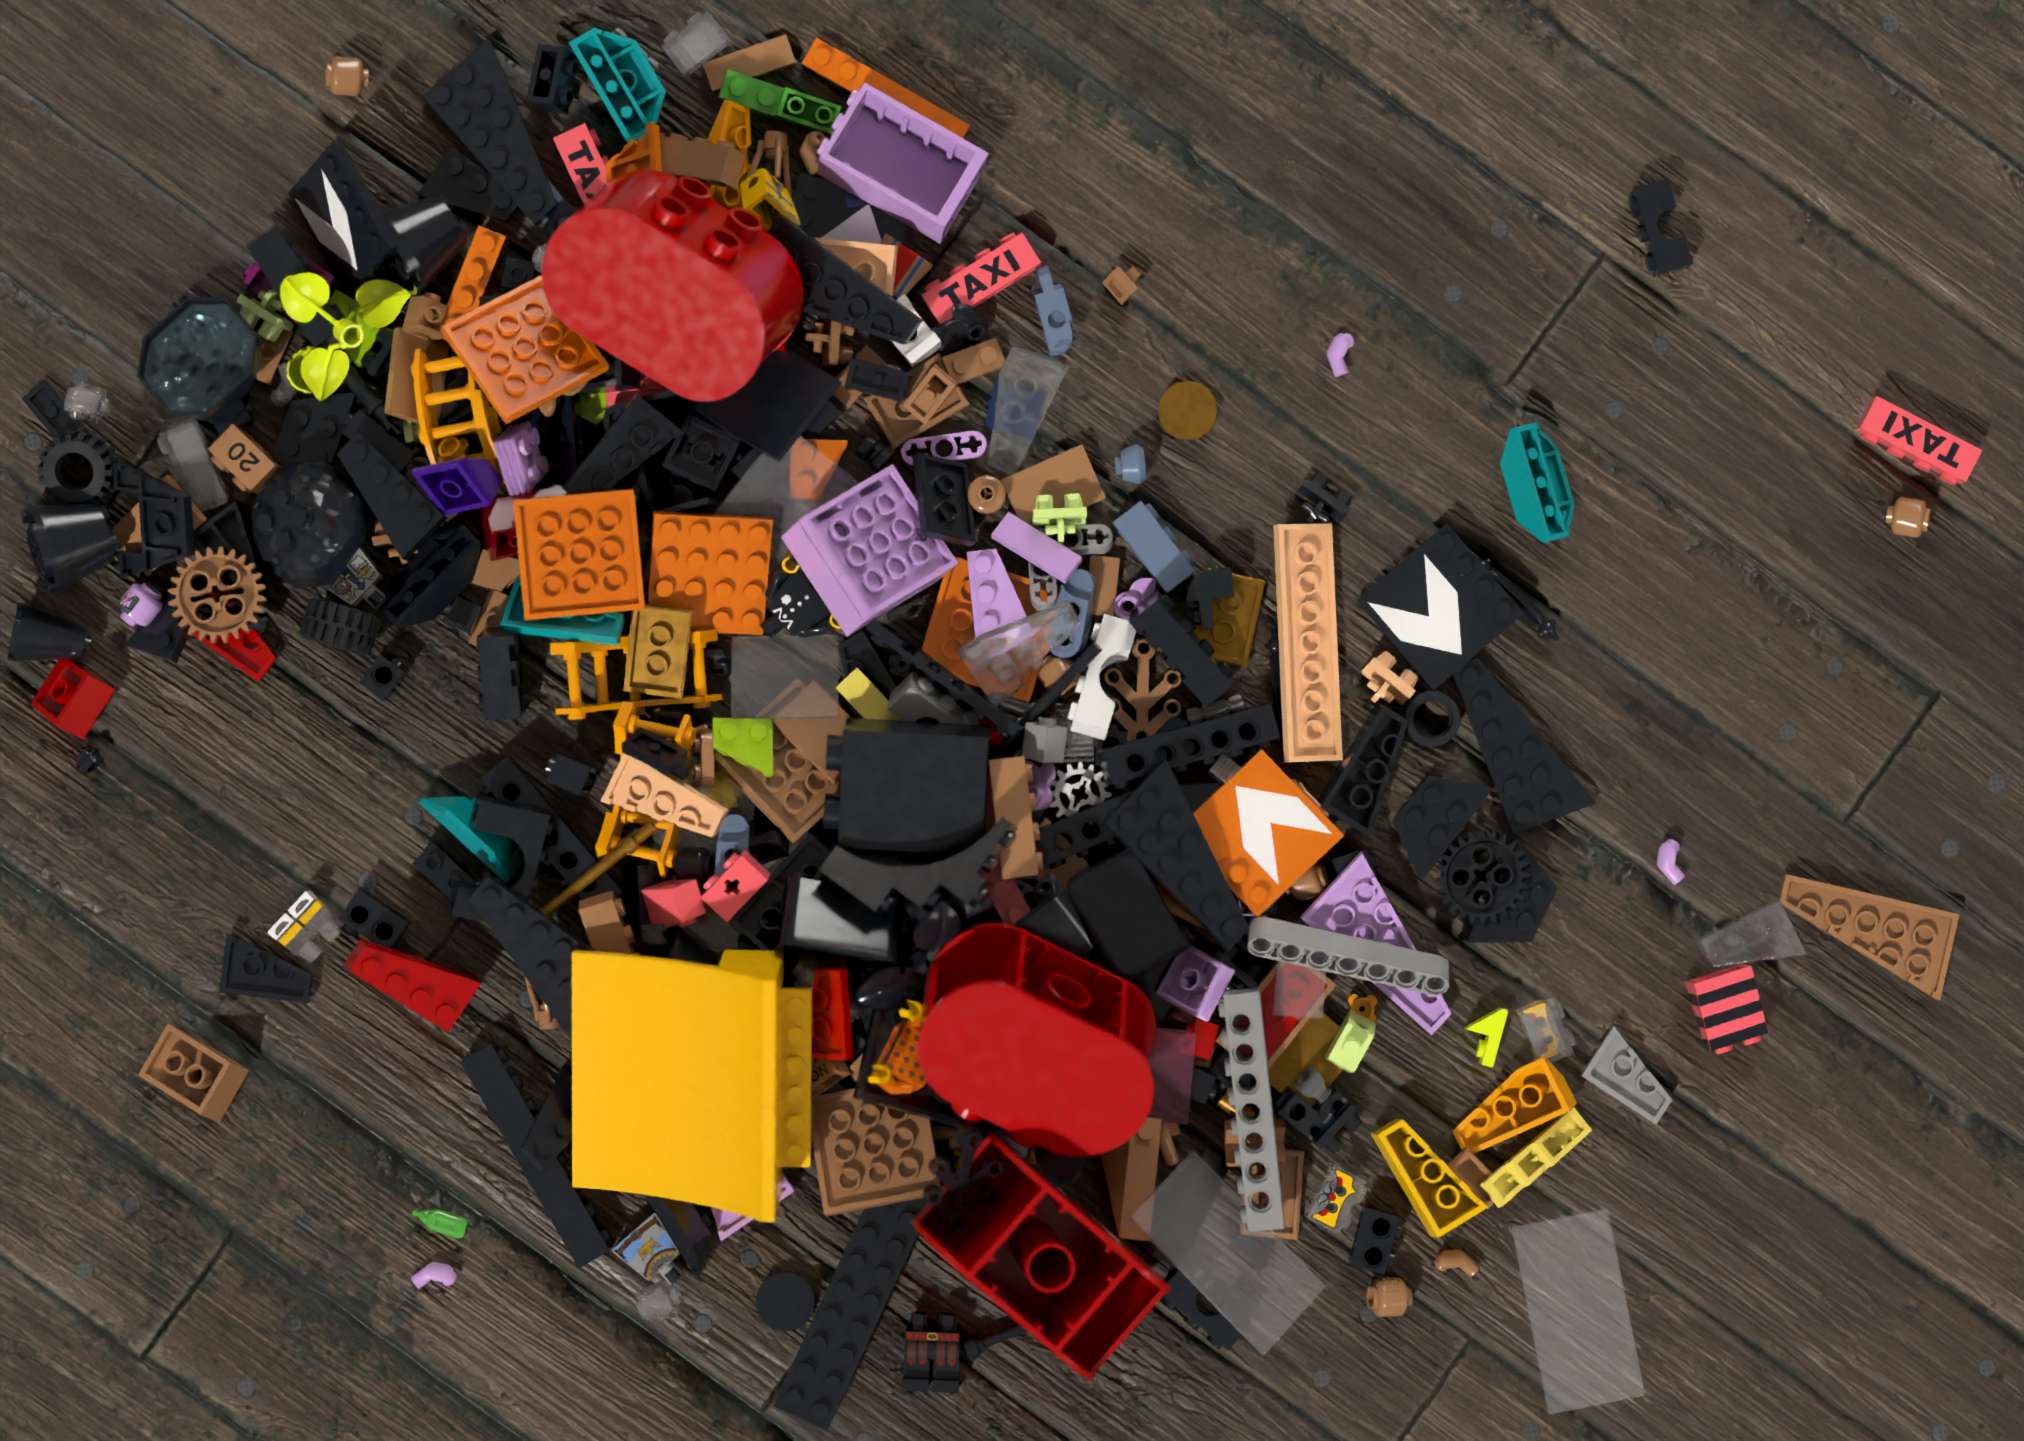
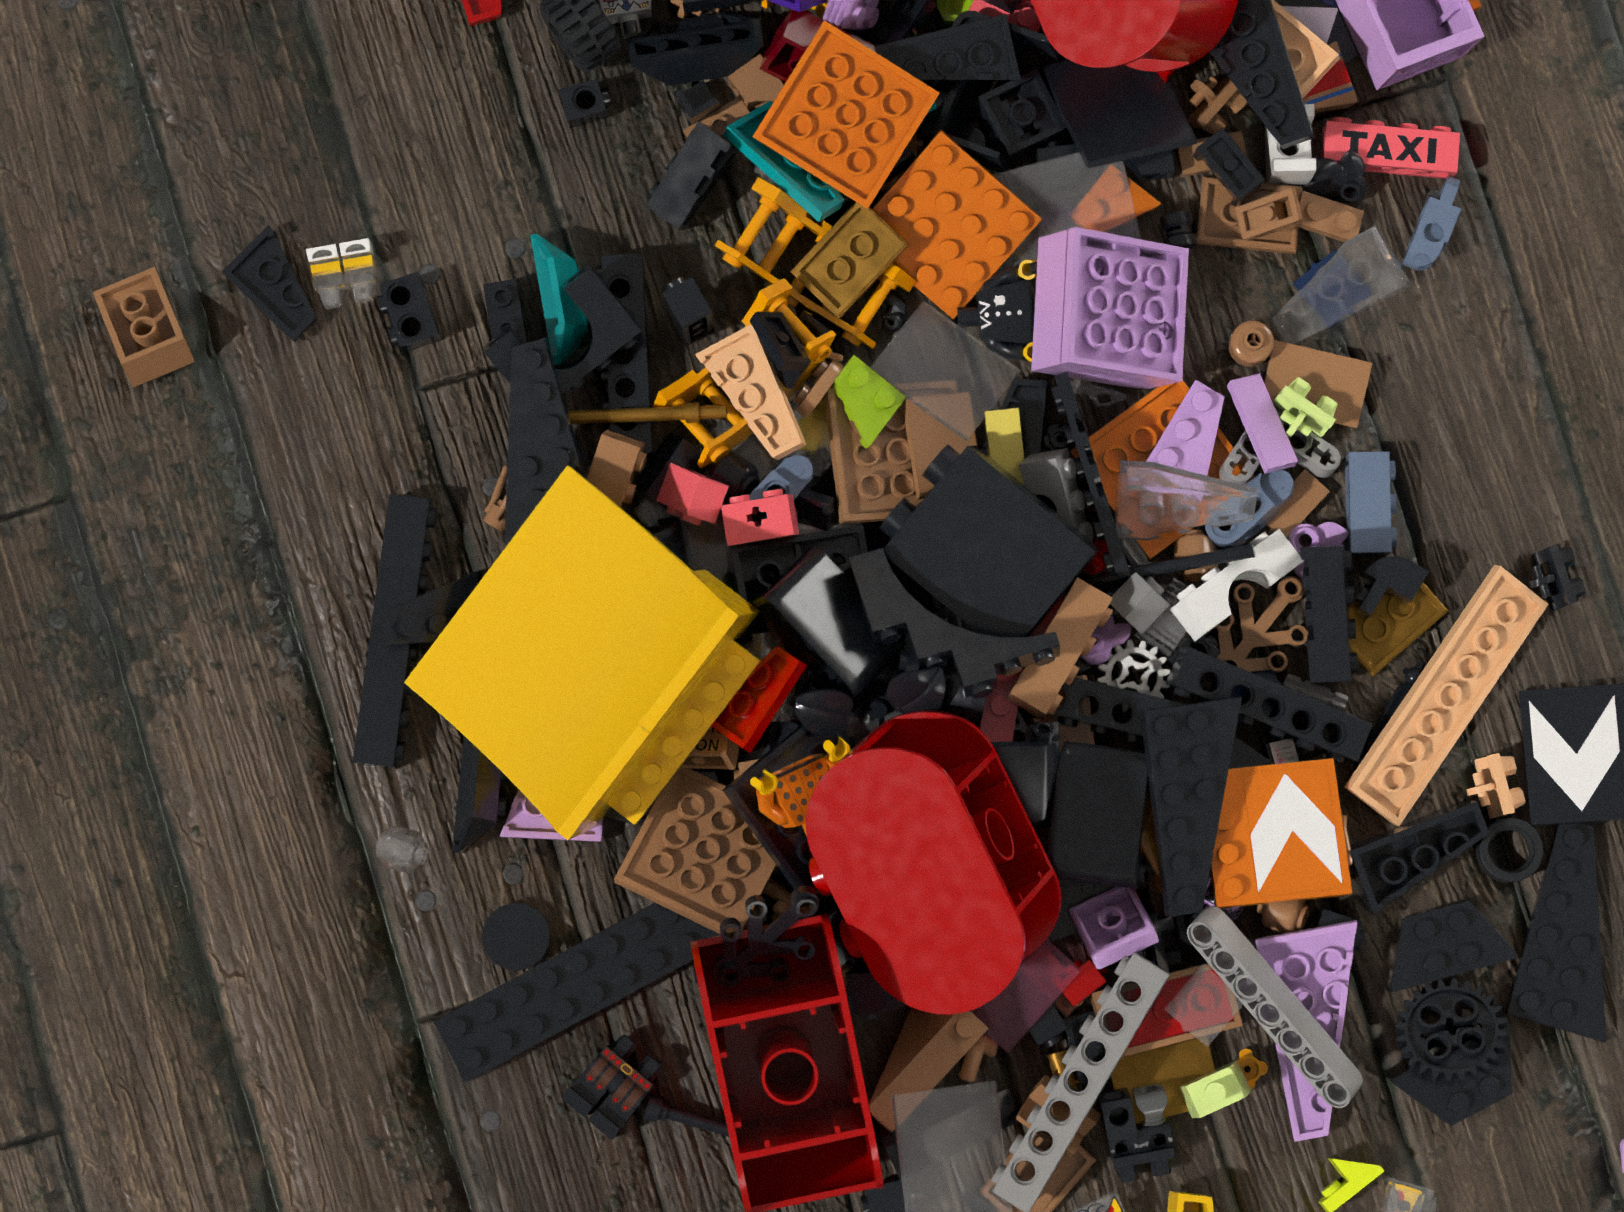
camera: 40 degrees right, 5 degrees down
(421, 985) = (406, 398): red wedge -> none
(434, 1271) = (220, 668): lavender arm -> none
(443, 1222) = (262, 629): bright green piece -> none
(650, 1250) = (429, 796): torso -> none
(920, 442) = (1245, 289): lavender beam -> none
(943, 499) = (1210, 316): black tile -> none
(1122, 284) = (1515, 246): medium nougat tile -> none
(1131, 464) = (1403, 414): sand blue cone -> none
(1187, 410) = (1490, 405): pearl gold tile -> none

